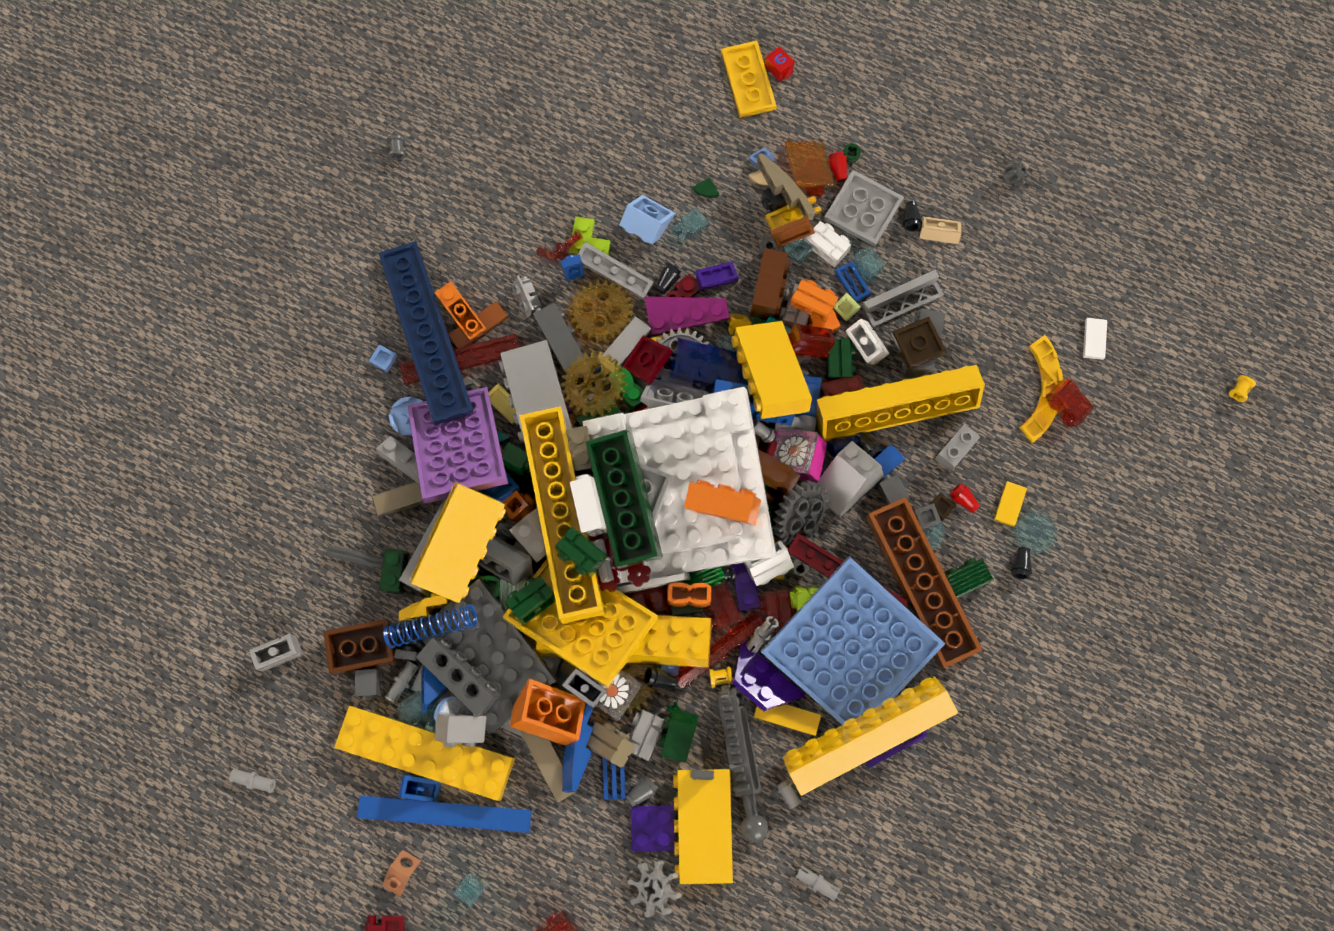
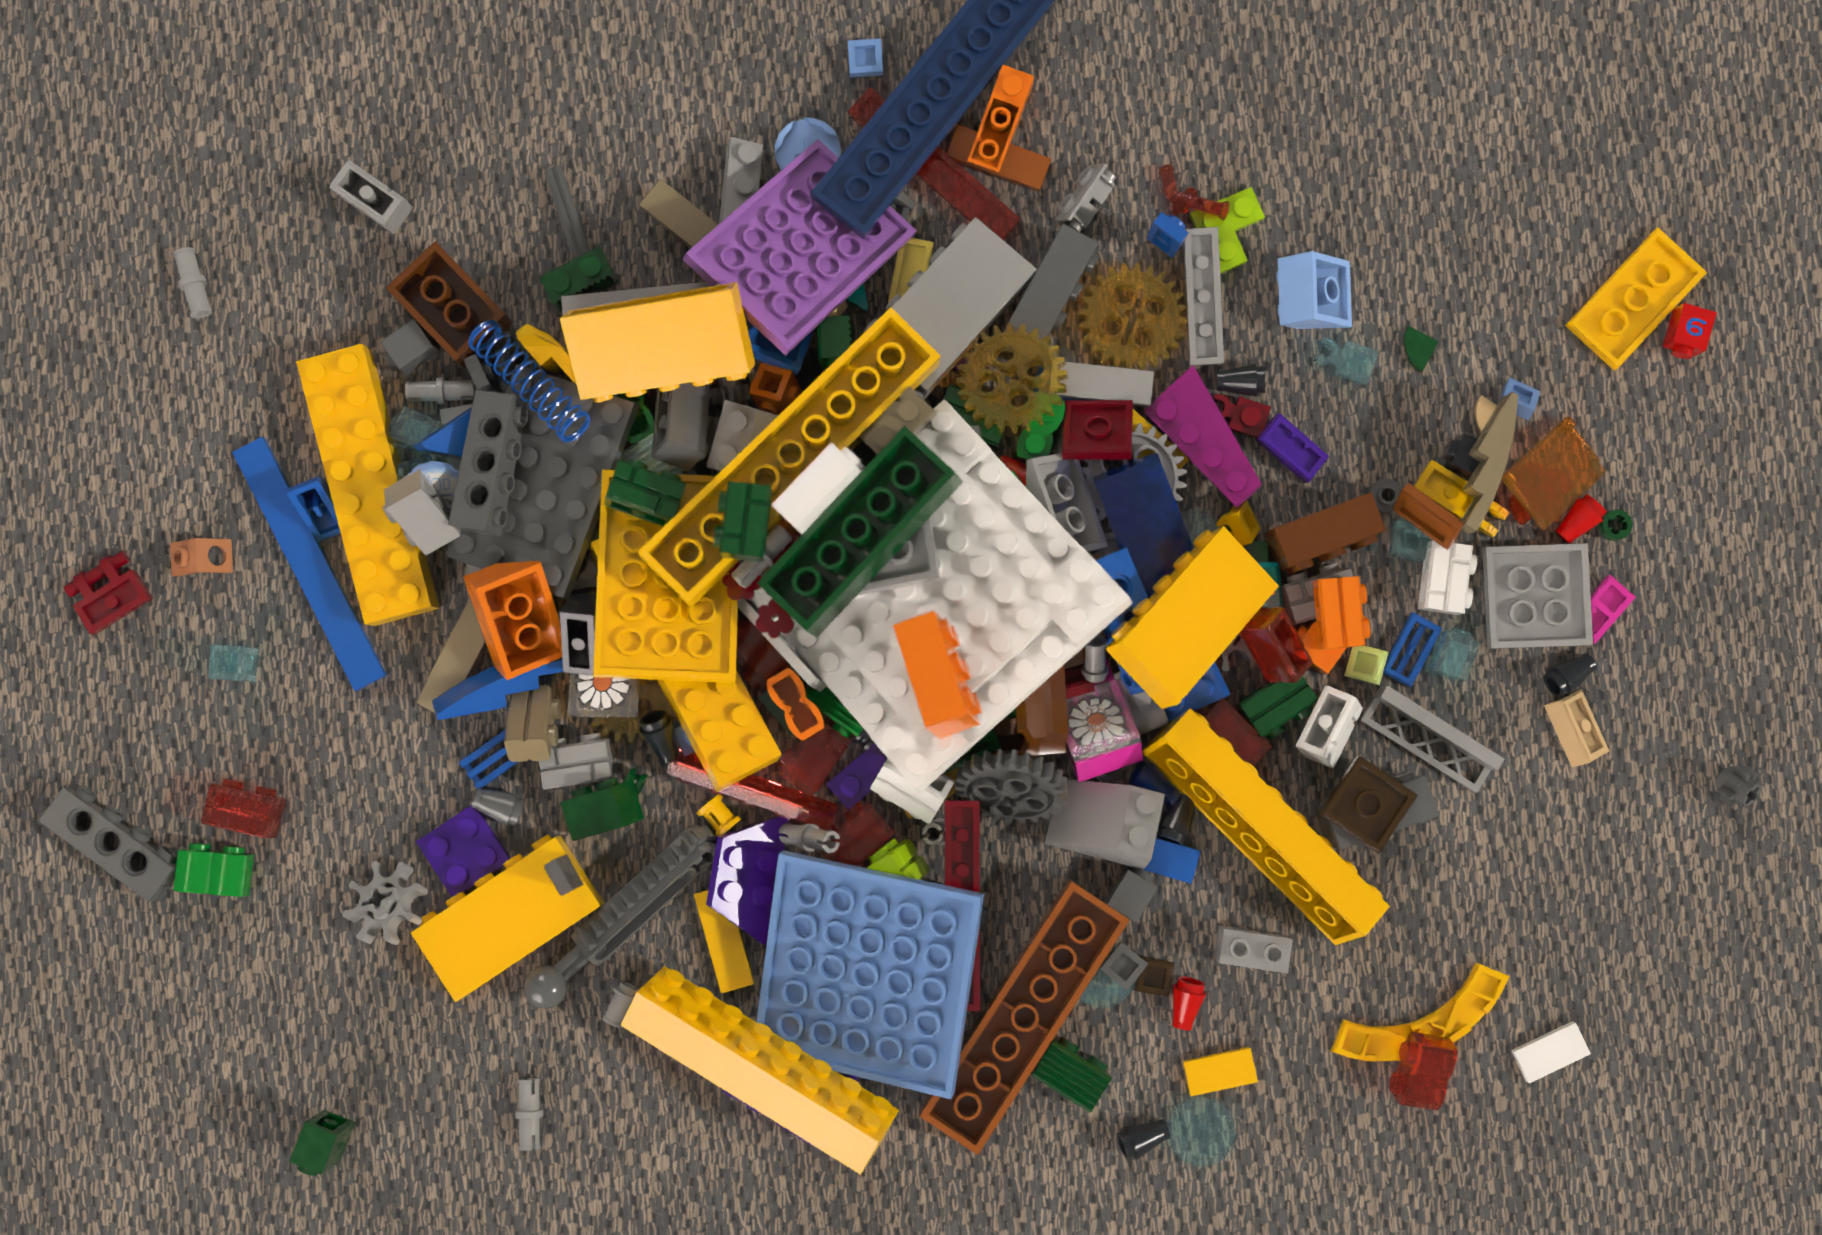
camera: 55 degrees right, 10 degrees up
(887, 177) = (1607, 605): none -> dark pink tile

